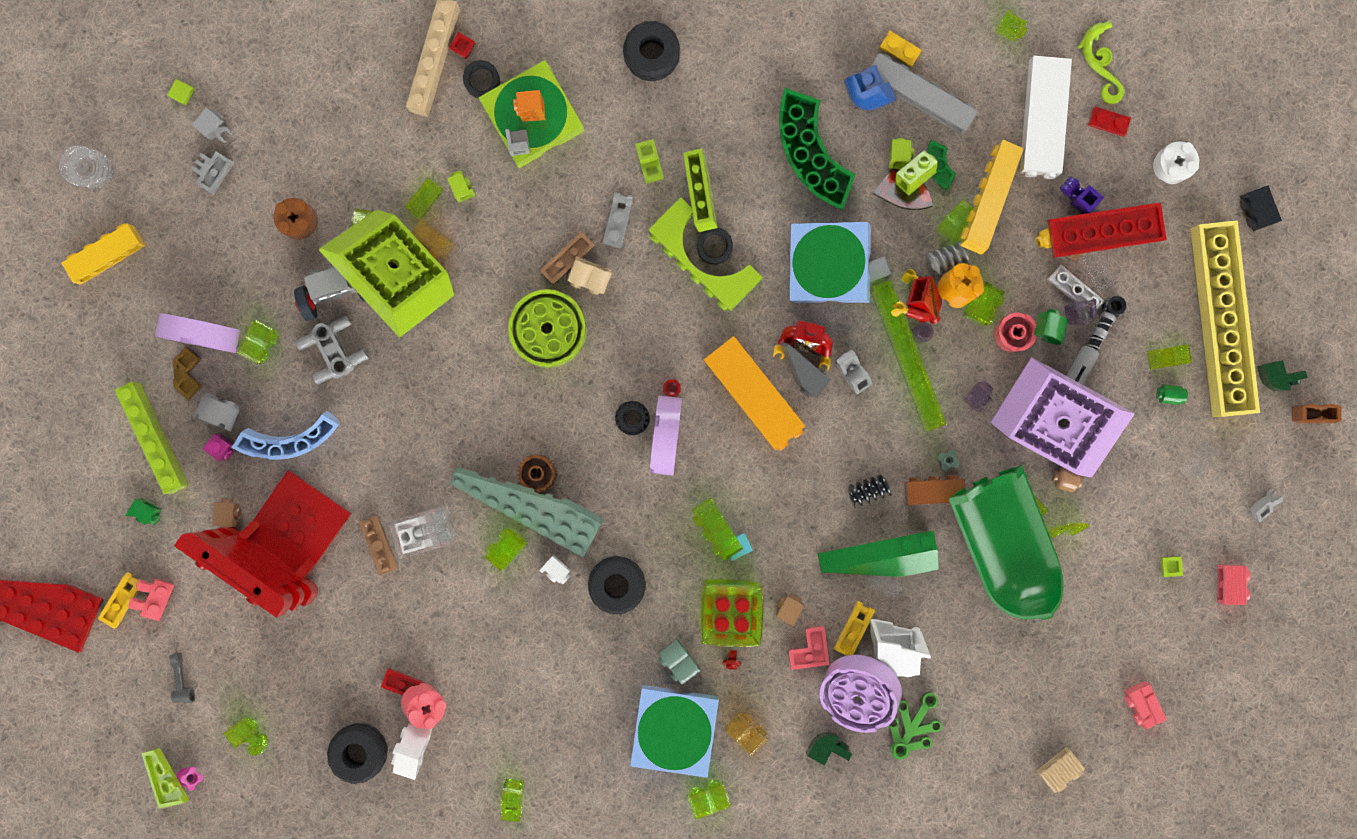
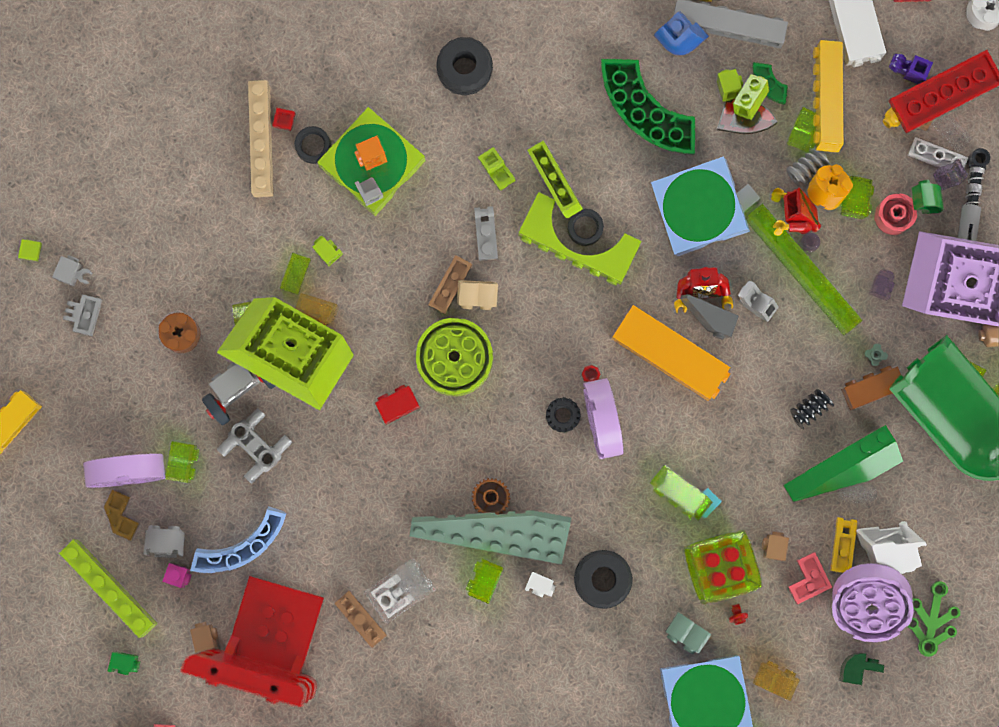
camera: 20 degrees left, 5 degrees down
(478, 356) = (397, 404): none -> red brick

